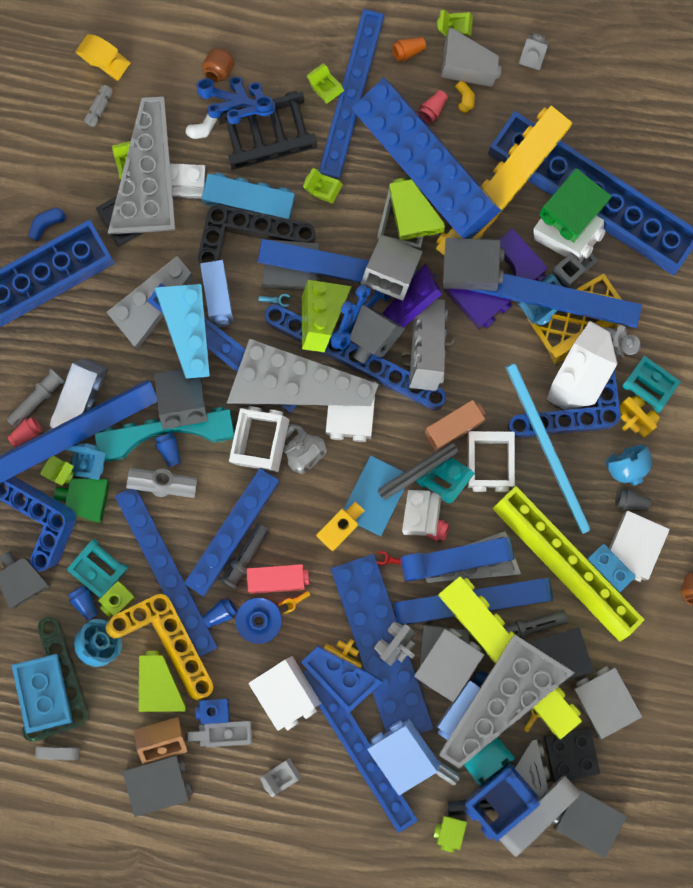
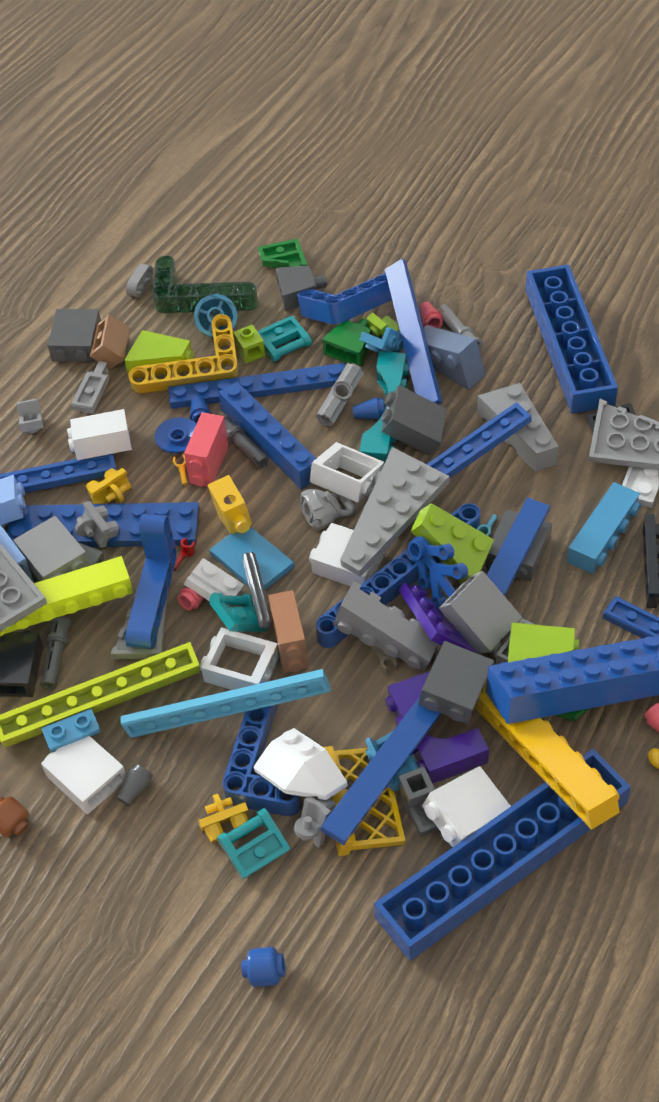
camera: 115 degrees right, 30 degrees down
(42, 693) = (191, 271): dark azure tile -> none
(44, 220) = (631, 369): blue arm -> none
(83, 602) = (259, 320): blue cone -> none
(186, 324) = (476, 421): medium azure wedge -> none
(213, 711) = (114, 386): blue brick -> none
(217, 293) = (507, 471): light blue brick -> none
(248, 229) = (582, 498): black beam -> none
(322, 186) = (599, 593): lime bracket -> none
(340, 677) = (90, 473): blue wing -> none
(374, 333) = (415, 578): dark grey torso -> none
(497, 596) = (102, 620): blue beam -> none
(574, 205) = (488, 802): green brick -> none
(630, 465) = (172, 789): dark azure cylinder -> none

